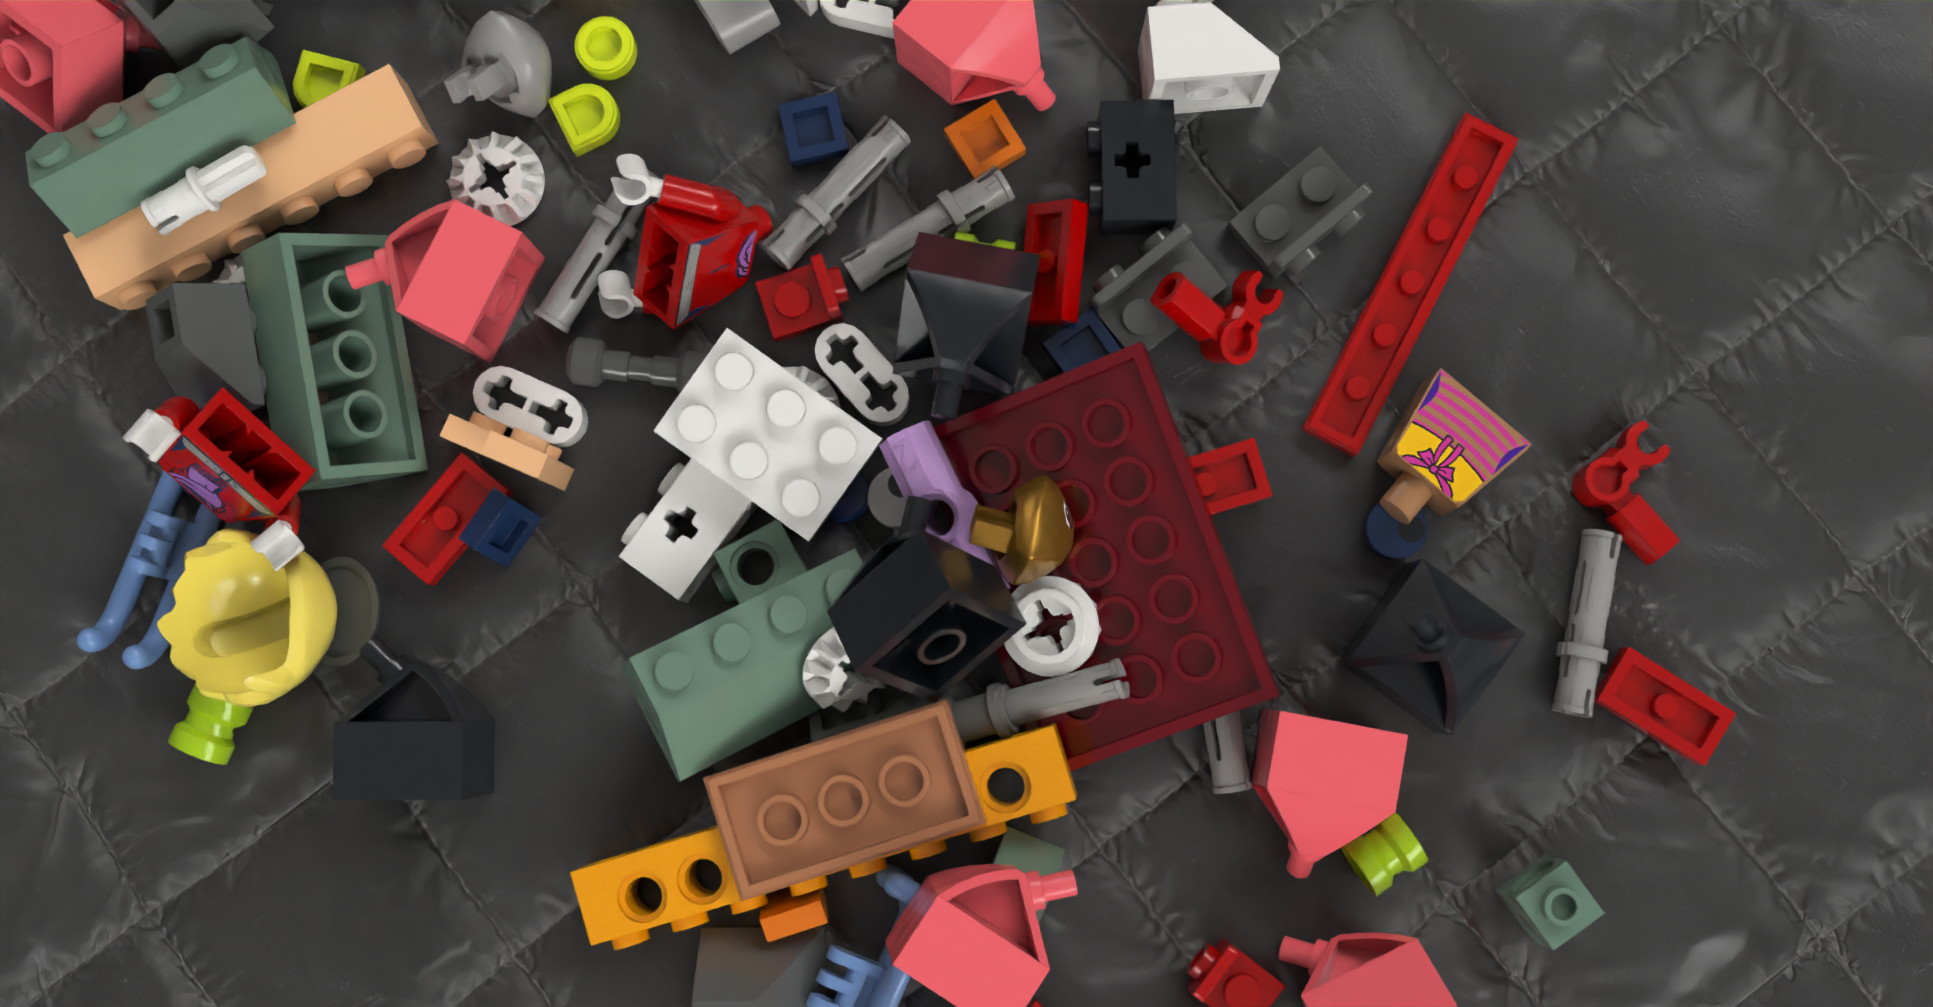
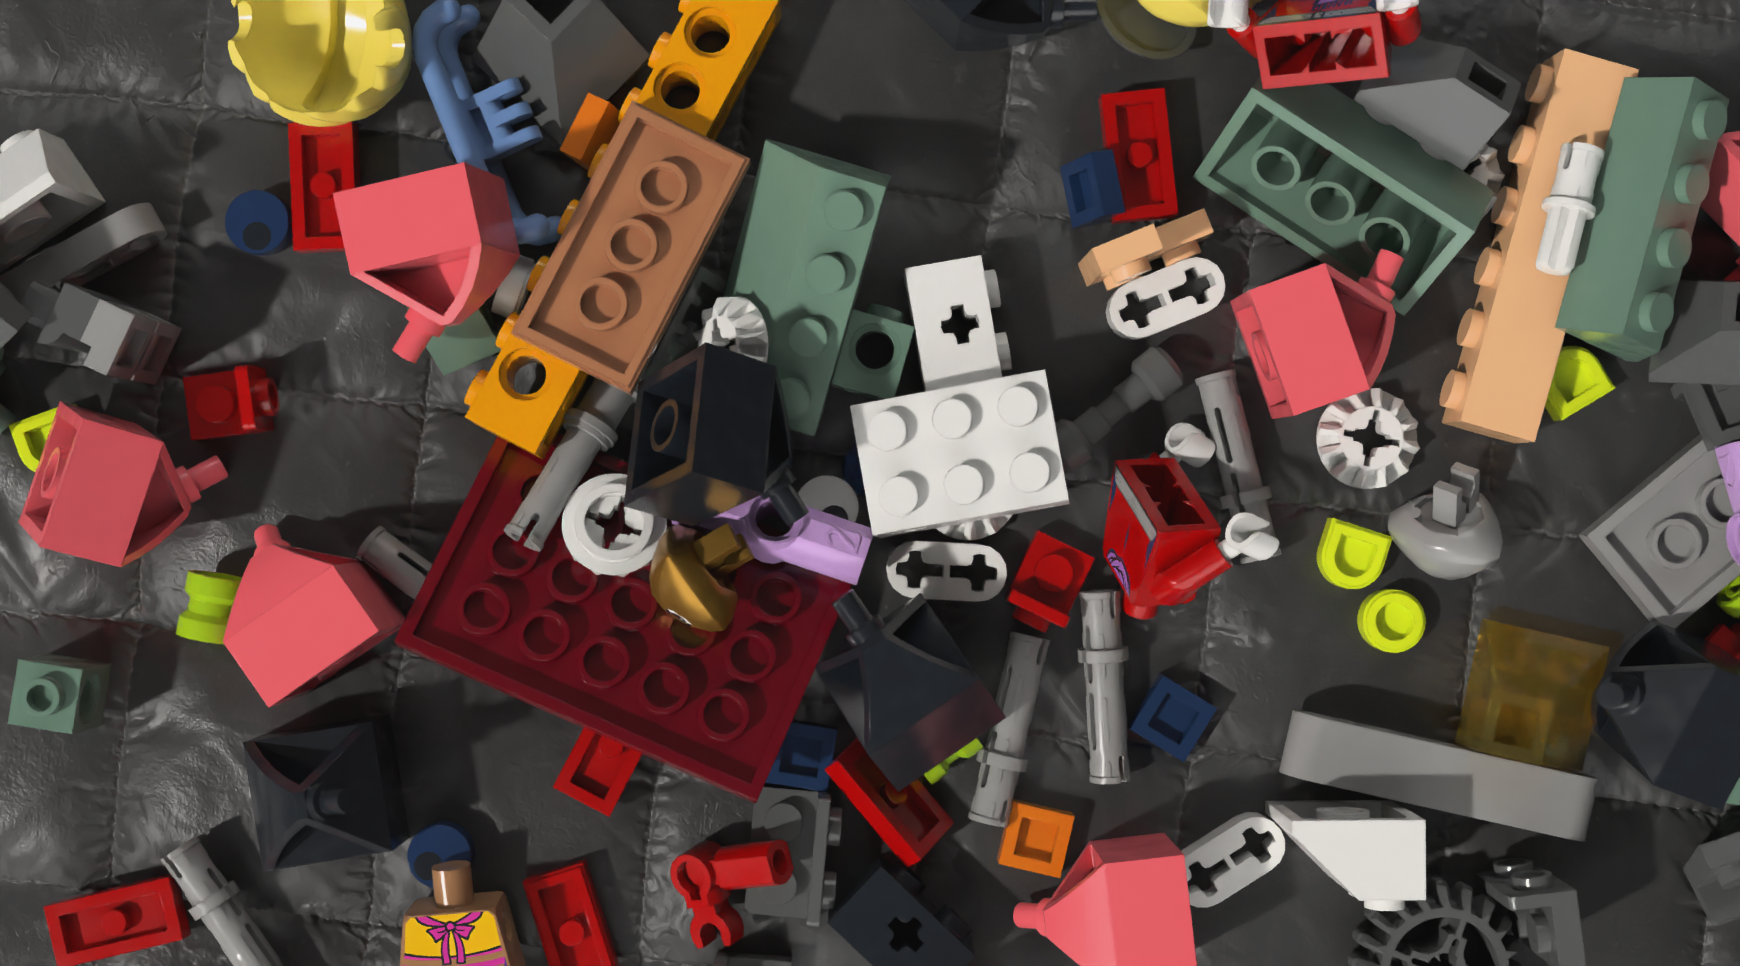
camera: 130 degrees right, 5 degrees up
(964, 855) = (512, 291): none -> white tile

